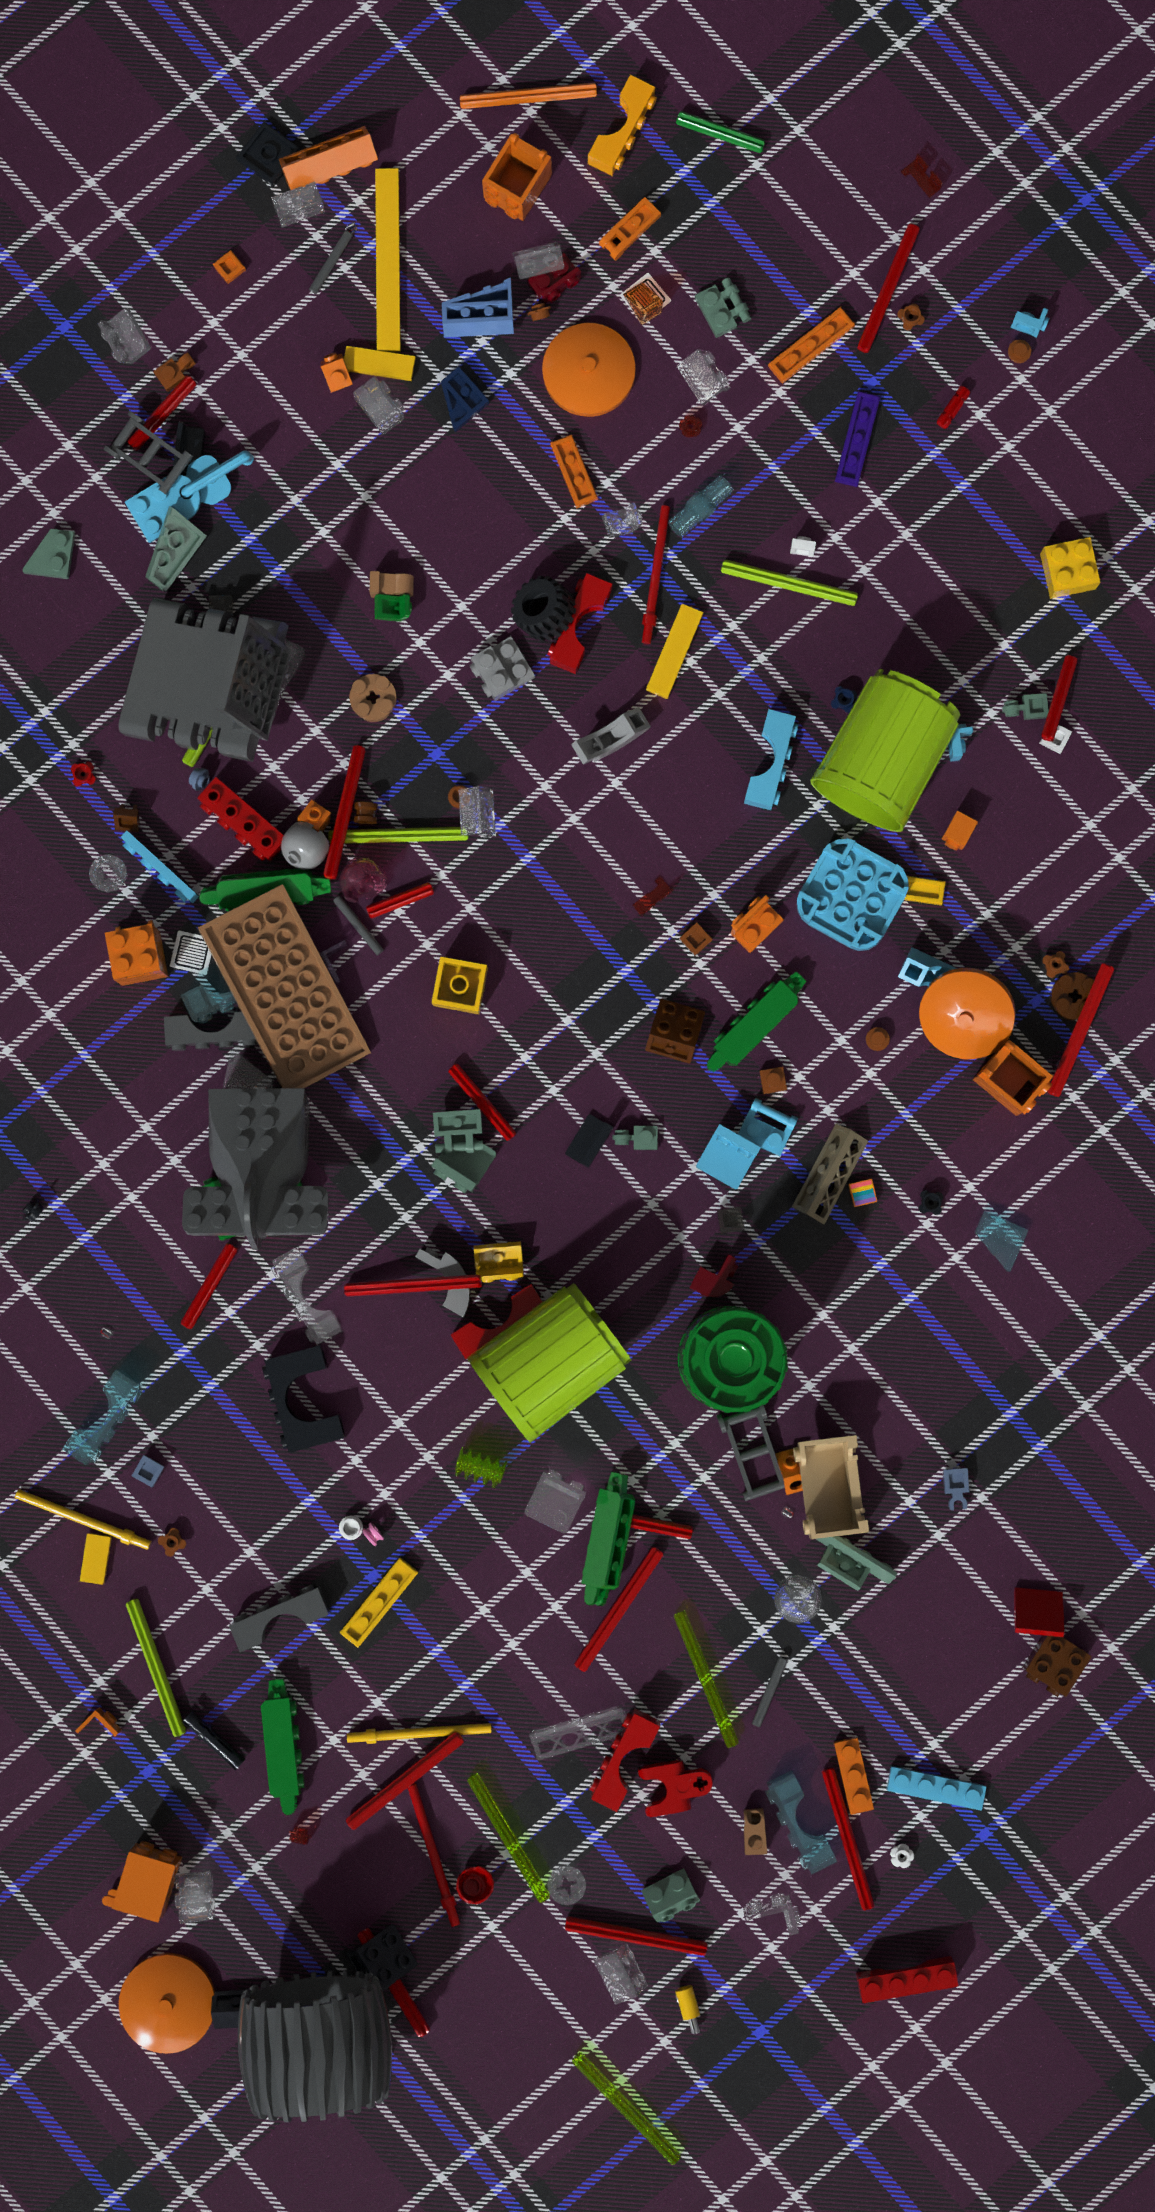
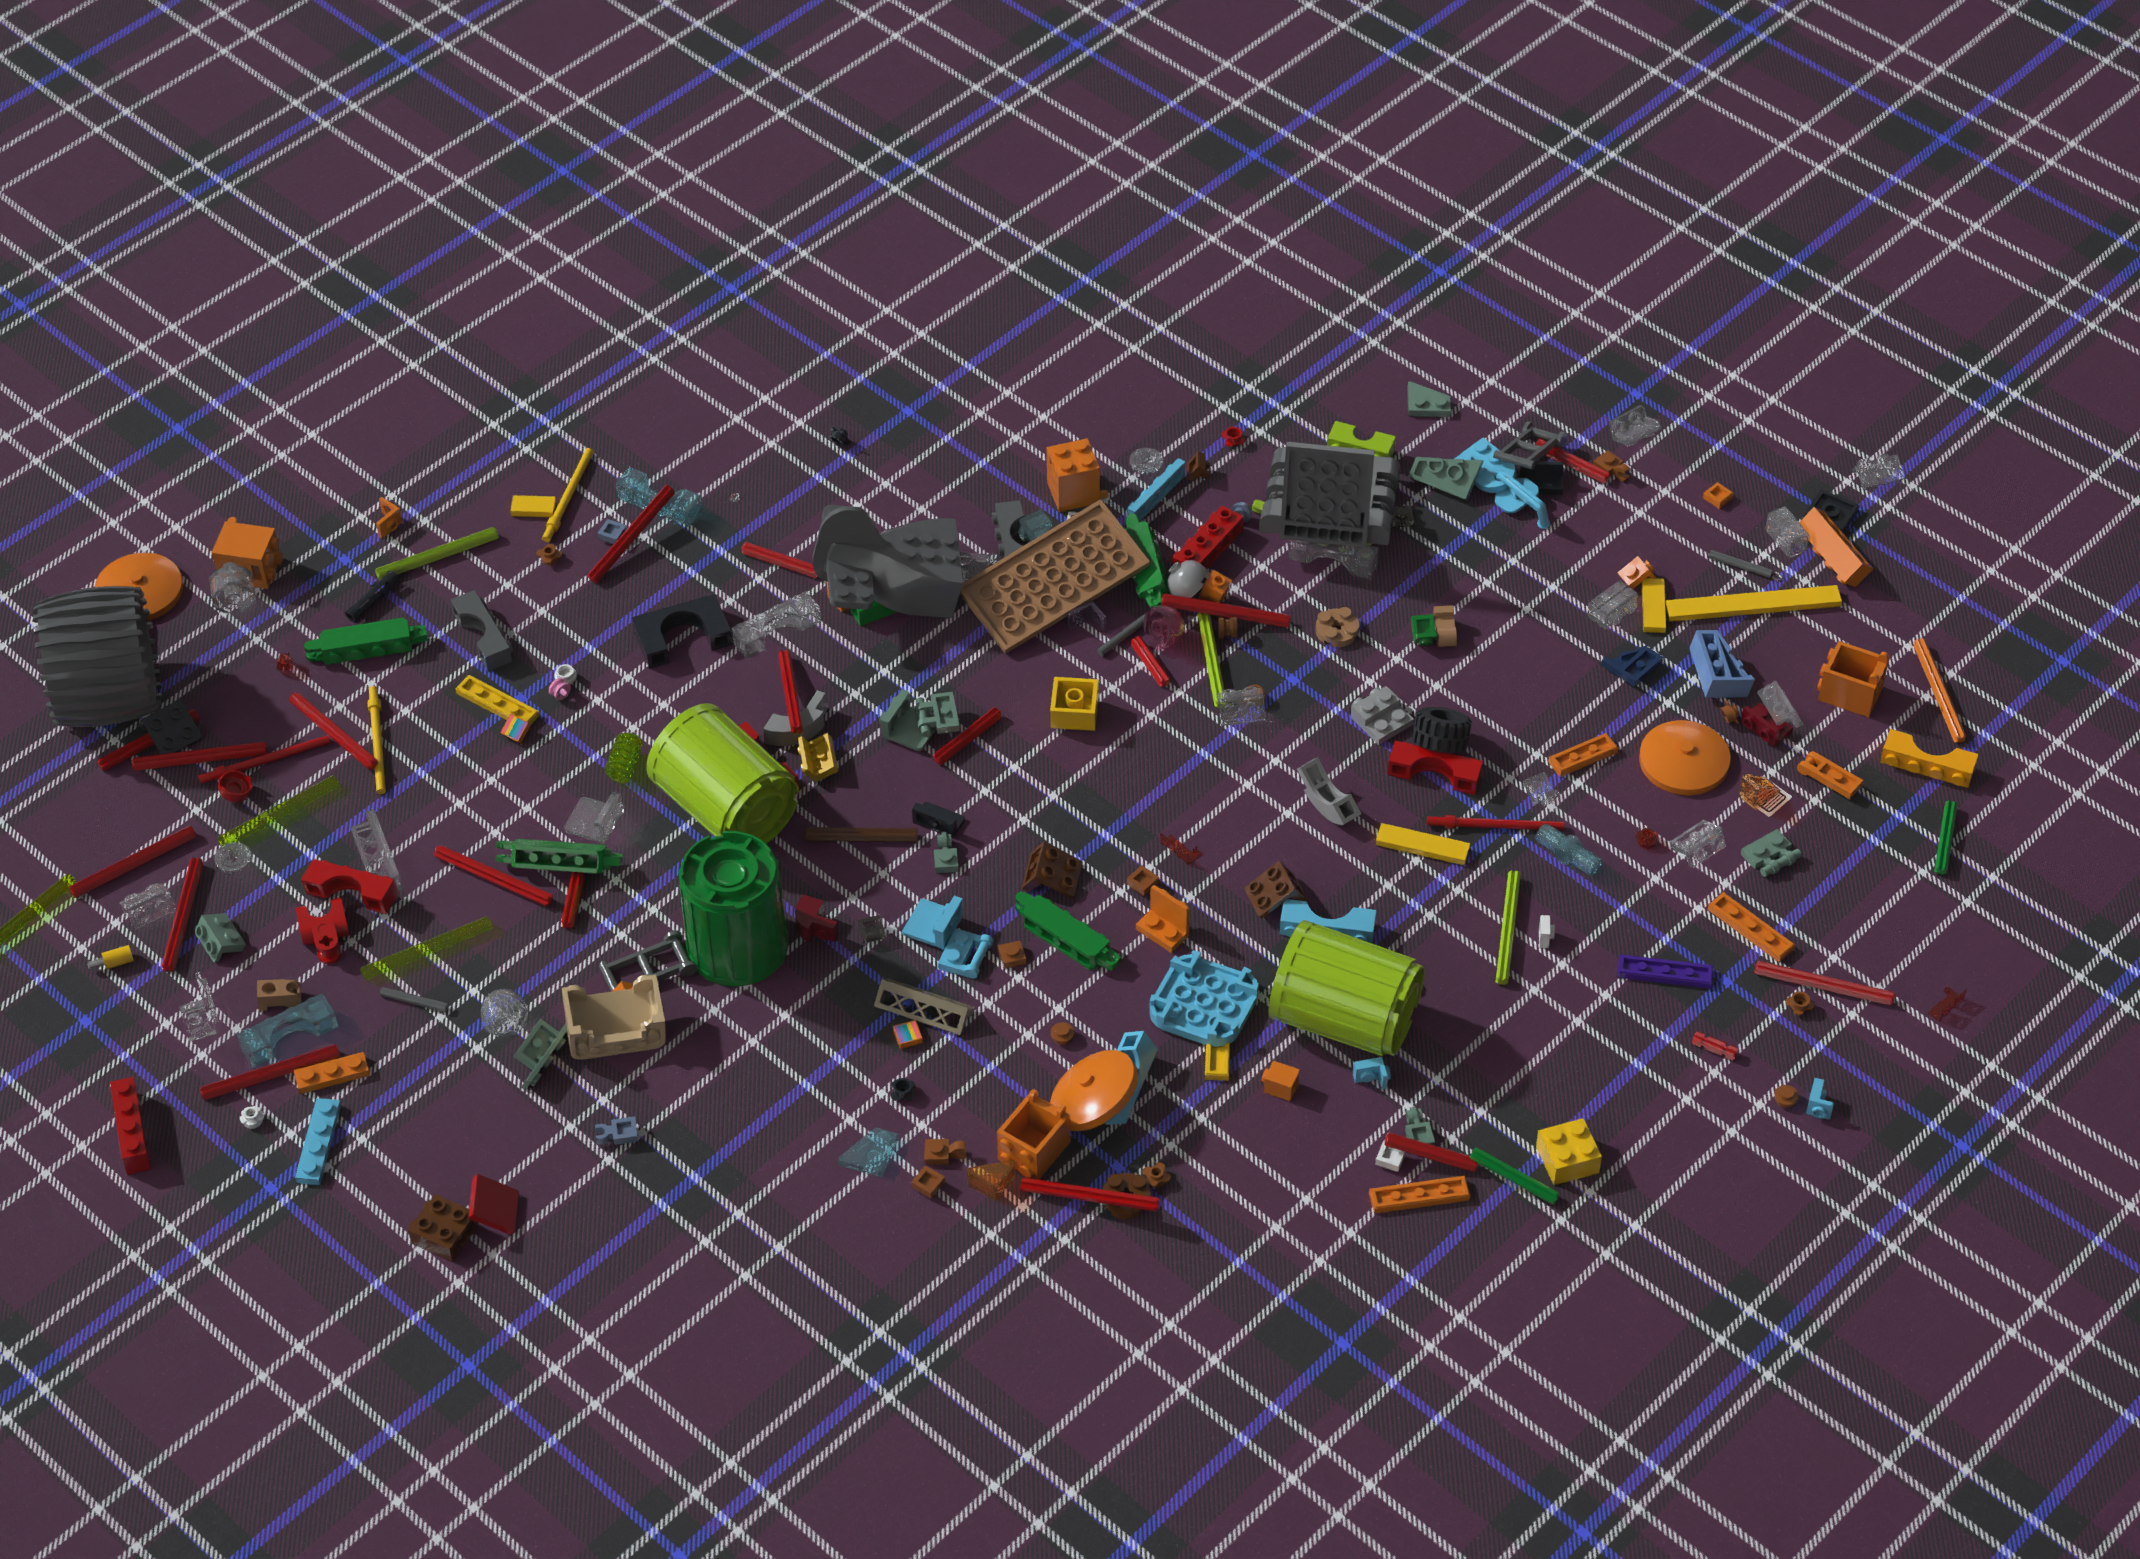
camera: 80 degrees right, 35 degrees down
(108, 655) = (1344, 436): none -> lime arch
(161, 1449) = (631, 534): none -> red axle
(218, 90) = (1879, 472): none -> clear bracket
(422, 1582) = (515, 728): none -> tile
(422, 1925) = (199, 756): none -> red axle
(560, 1992) = (132, 861): none -> red axle
(602, 1224) = (860, 834): none -> reddish brown axle
(727, 807) = (1273, 889): none -> reddish brown bracket
(1007, 1172) = (939, 1151): none -> dark orange plate
(1044, 1185) = (928, 1182): none -> dark orange plate
(1049, 1122) = (991, 1178): none -> clear orange slope
(1092, 623) = (1514, 1175): none -> green axle
(1097, 717) = (1419, 1194): none -> orange tile

